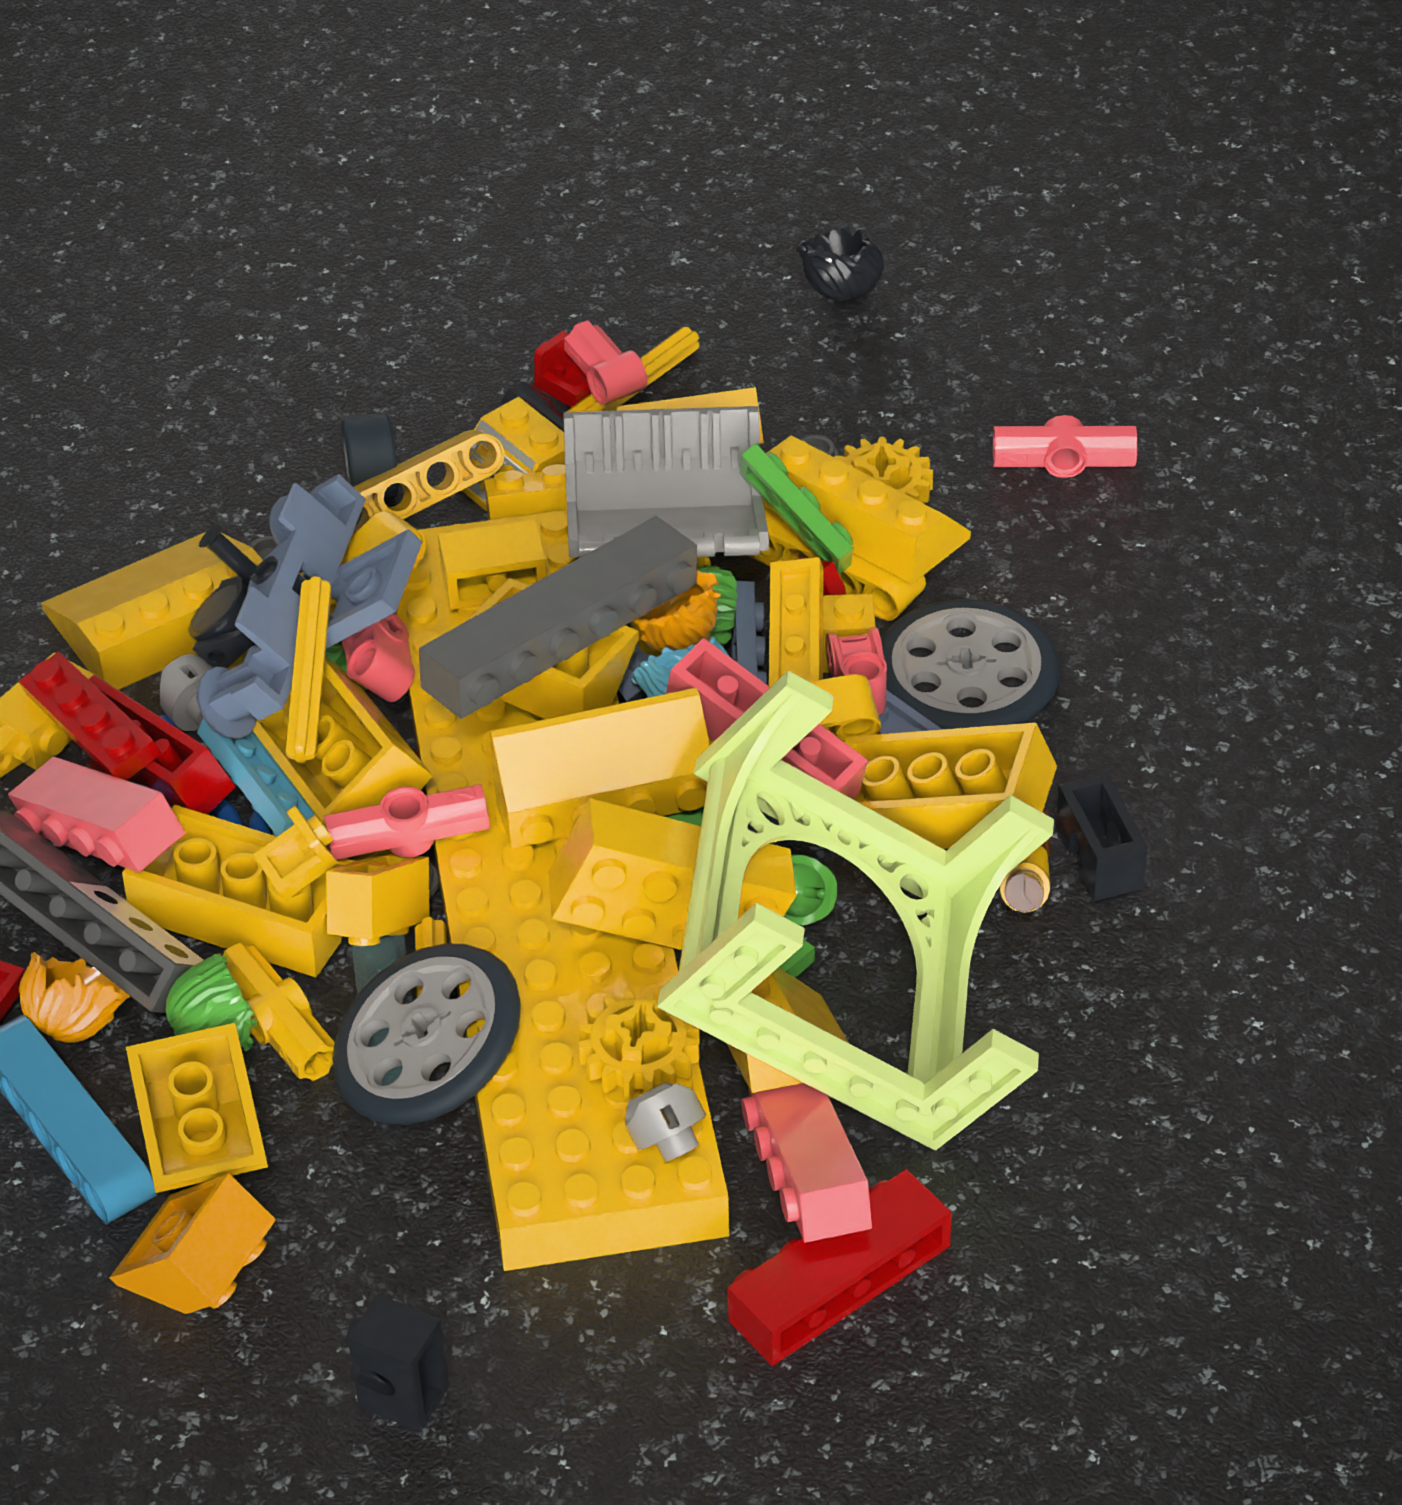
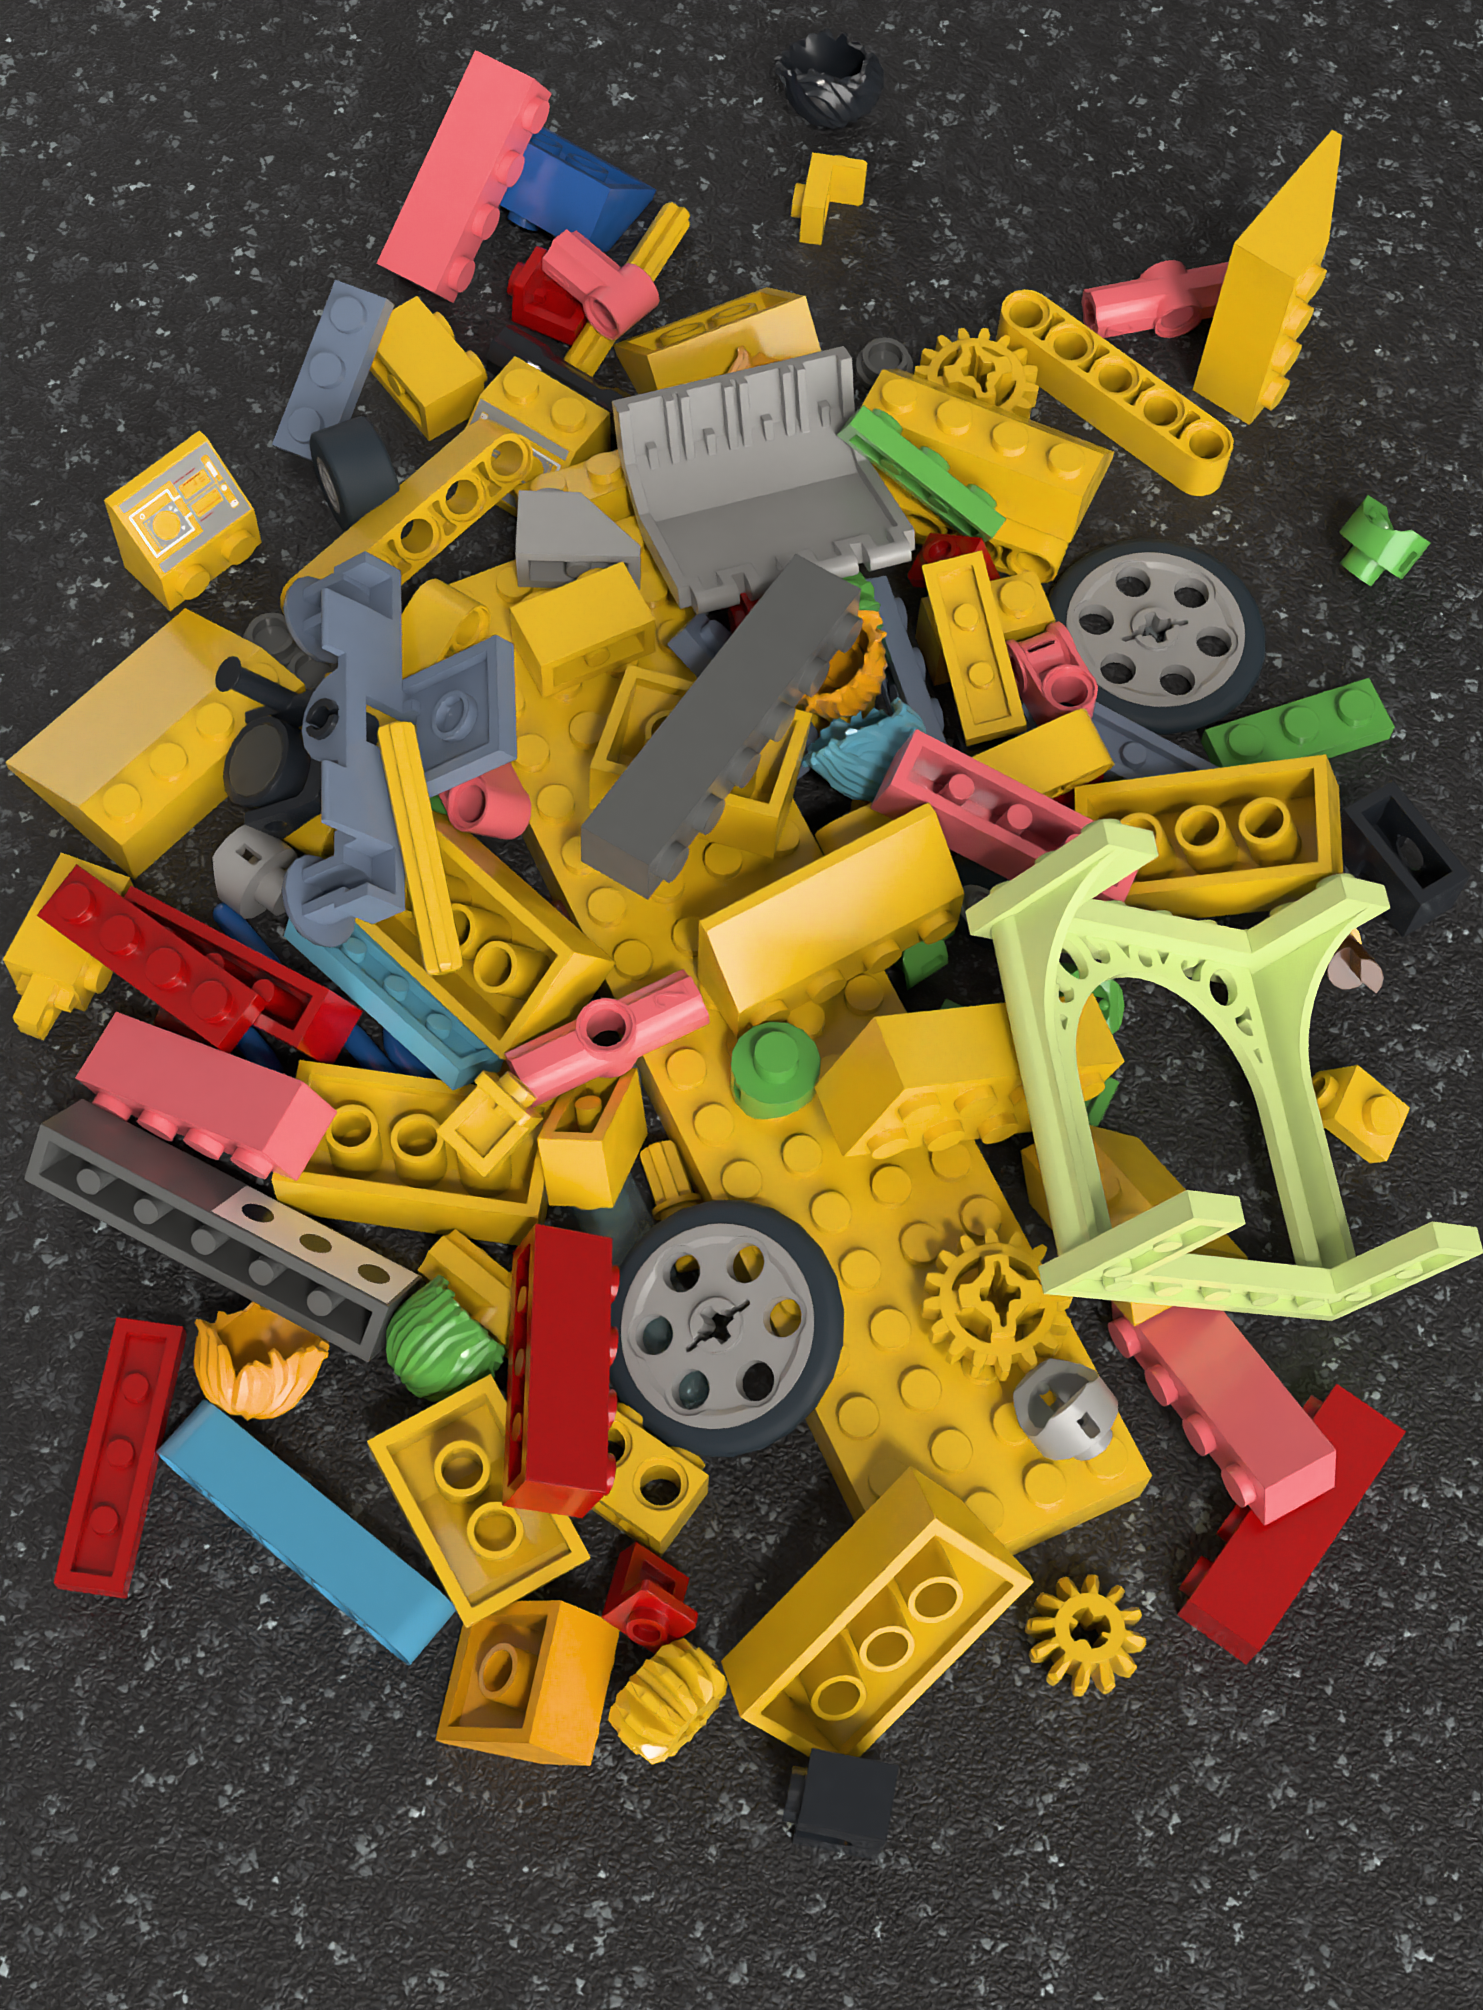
camera: 20 degrees left, 20 degrees up
(227, 464) = (182, 522): none -> yellow slope
(285, 1028) = (560, 1372): none -> red brick
(291, 1272) = (667, 1700): none -> yellow gear
(302, 1206) = (648, 1599): none -> red bracket
(323, 1131) = (642, 1462): none -> yellow brick
(383, 381) = (334, 366): none -> sand blue plate
(449, 395) = (427, 369): none -> yellow brick
(472, 1232) = (874, 1621): none -> yellow slope
(501, 497) = (565, 536): none -> light grey slope
(522, 863) = (774, 1070): none -> bright green piece
(523, 277) = (466, 177): none -> coral brick
(588, 290) = (574, 191): none -> blue slope
(641, 1306) = (1076, 1657): none -> yellow gear
(812, 331) = (828, 180): none -> yellow bracket
(995, 501) = (1117, 394): none -> yellow beam
(1006, 1003) = (1359, 1111): none -> yellow bracket
(1093, 748) = (1311, 726): none -> bright green plate
(1126, 428) = (1268, 291): none -> yellow slope
(1171, 628) = (1378, 544): none -> bright green piece

